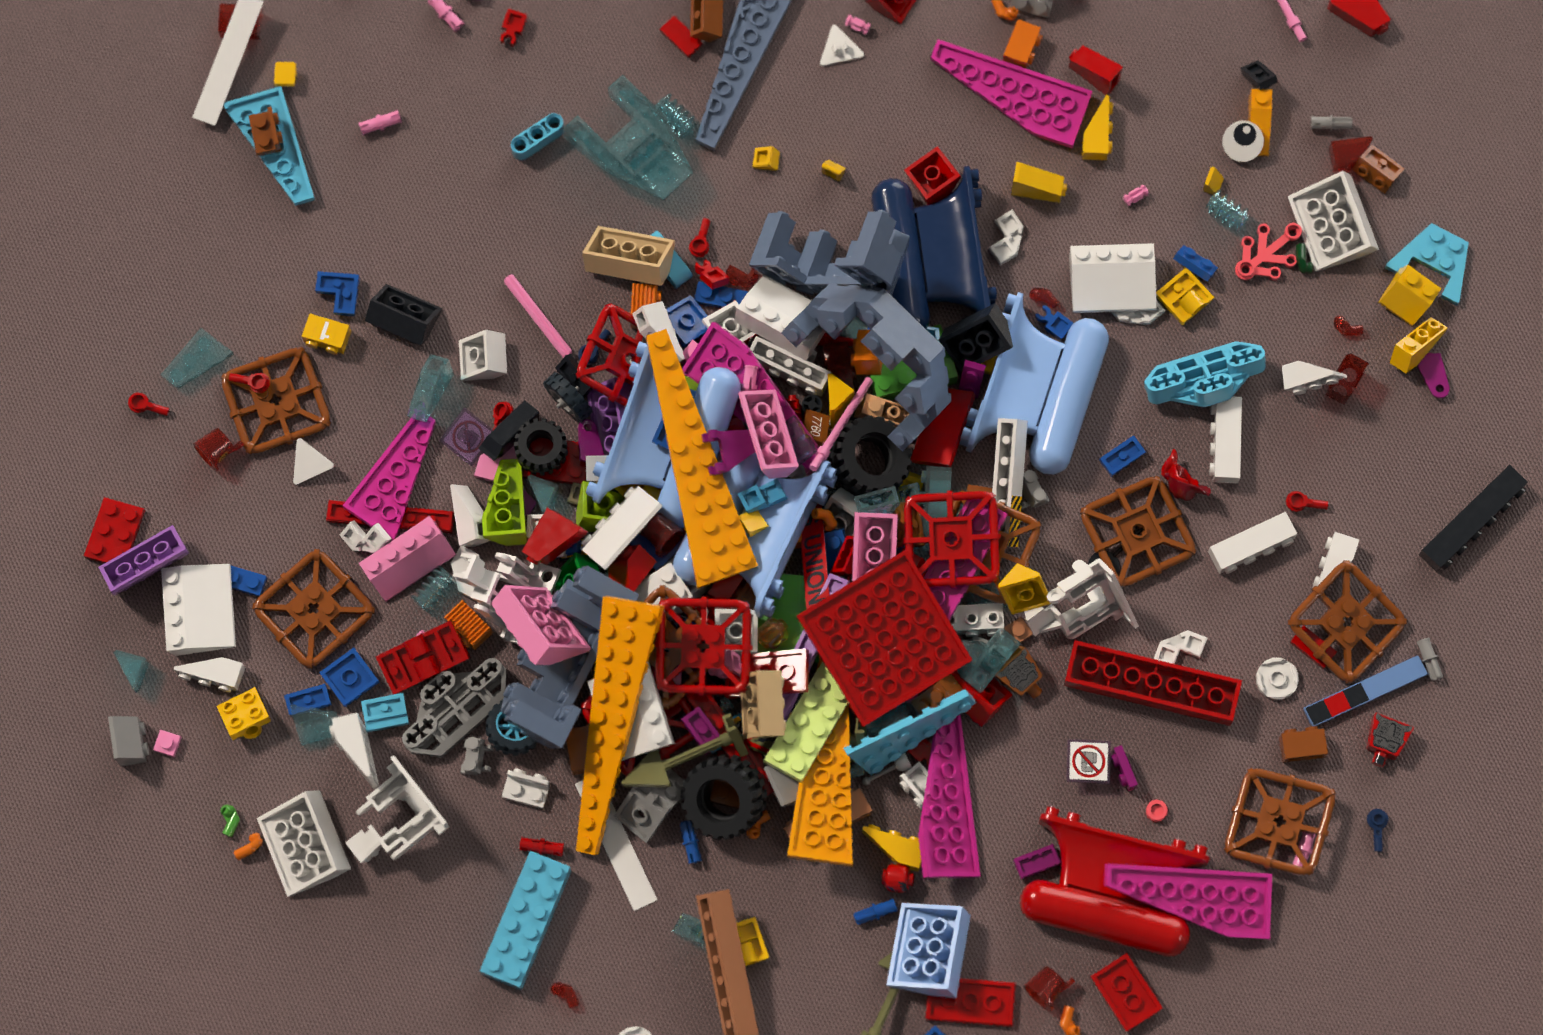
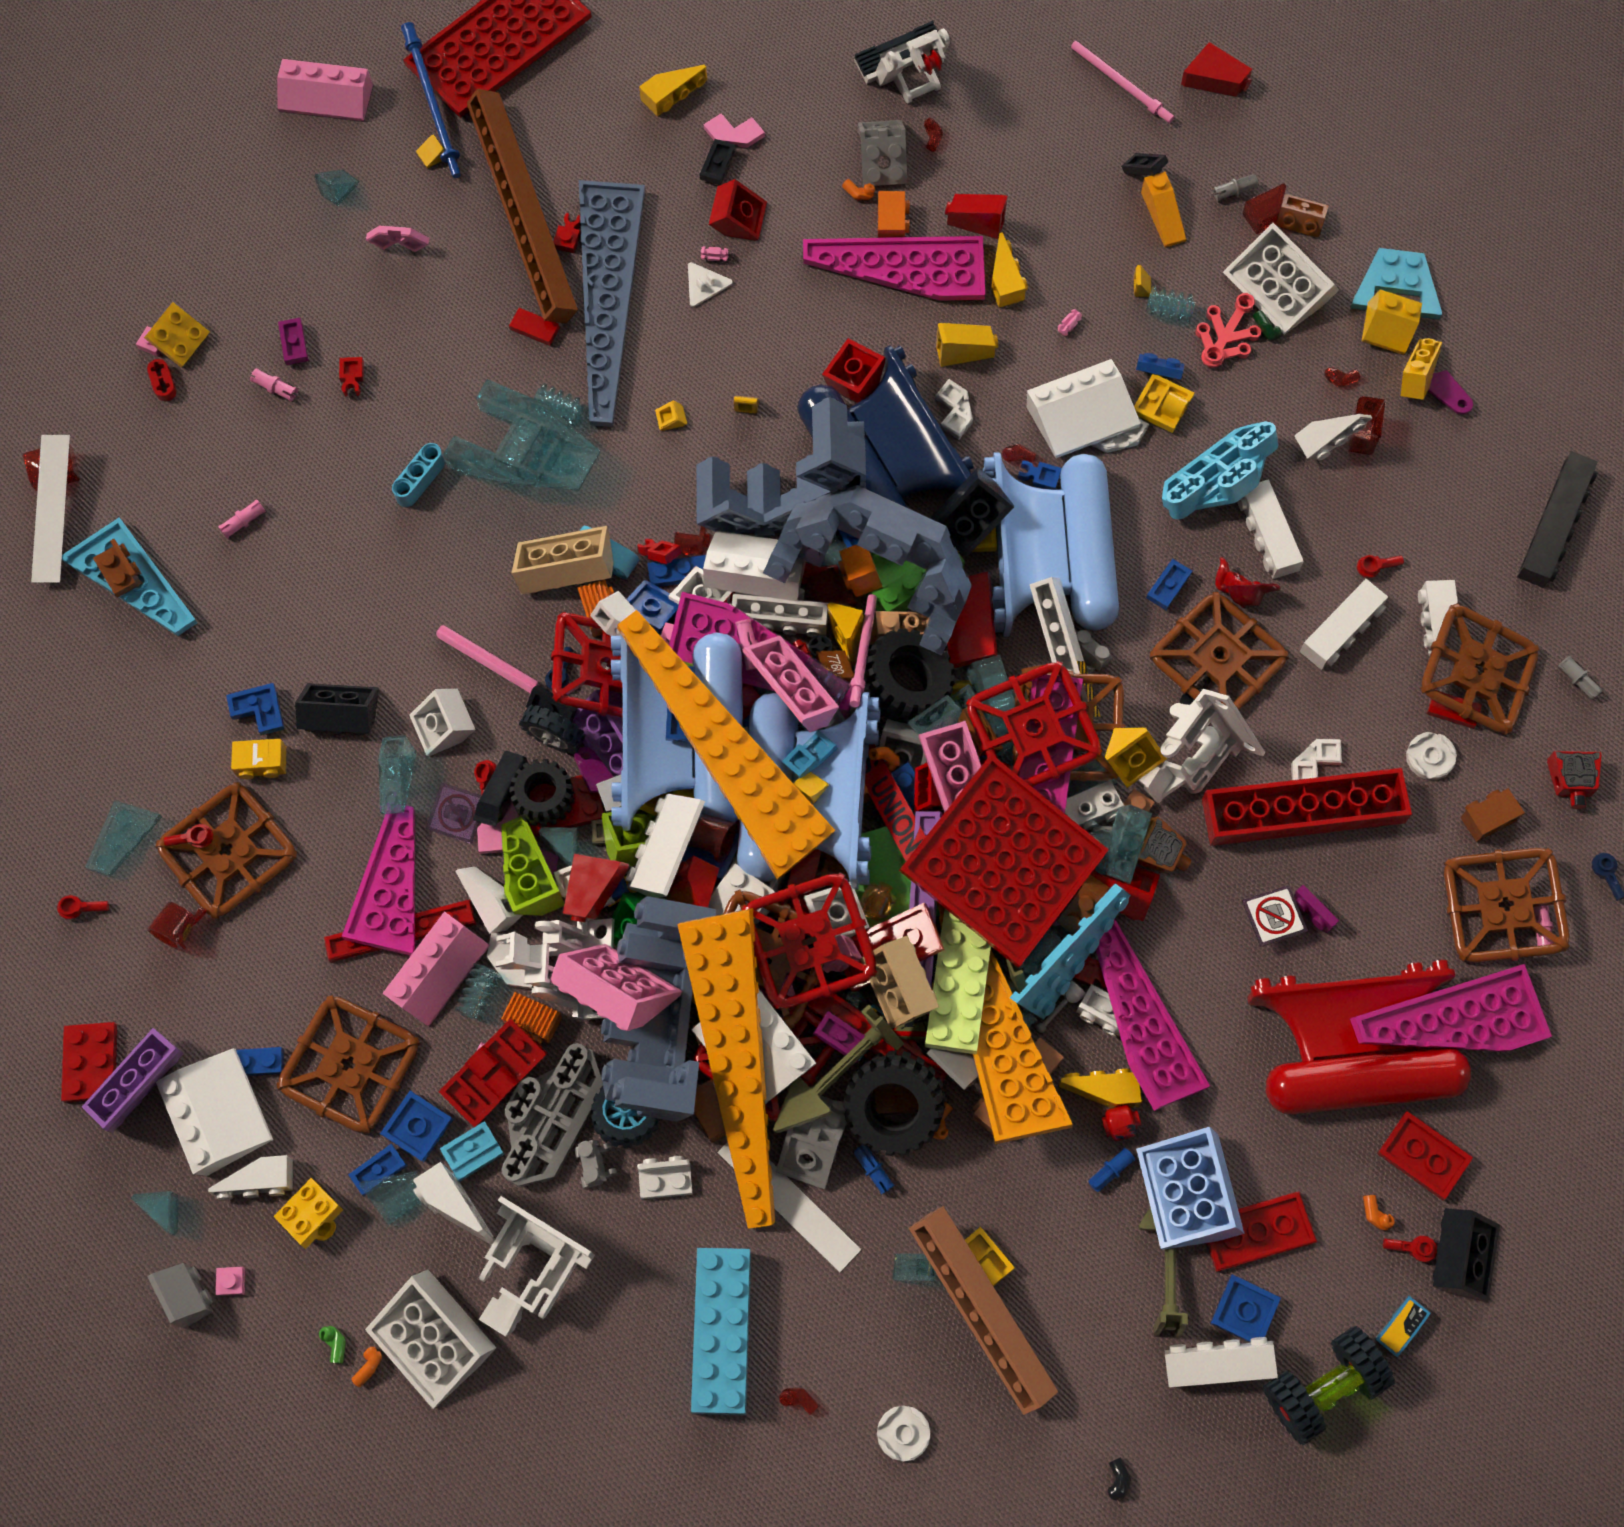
camera: 20 degrees left, 5 degrees down
(285, 74) = (120, 503): yellow slope -> none
(309, 462) = (287, 903): white piece -> none
(360, 541) = (374, 969): white tile -> none
(541, 846) = (707, 1238): red pin -> none
(699, 246) = (634, 527): red plate -> none
(734, 448) = (760, 711): magenta flag -> none
(972, 377) = (979, 556): magenta plate -> none
(1037, 861) = (1264, 1046): magenta plate -> none
(1046, 987) = (1336, 1183): clear red hat -> none
(1156, 810) = (1367, 943): coral tile -> none
(1243, 141) = (1156, 232): white tile -> none
(1365, 691) = (1528, 736): tile -> none

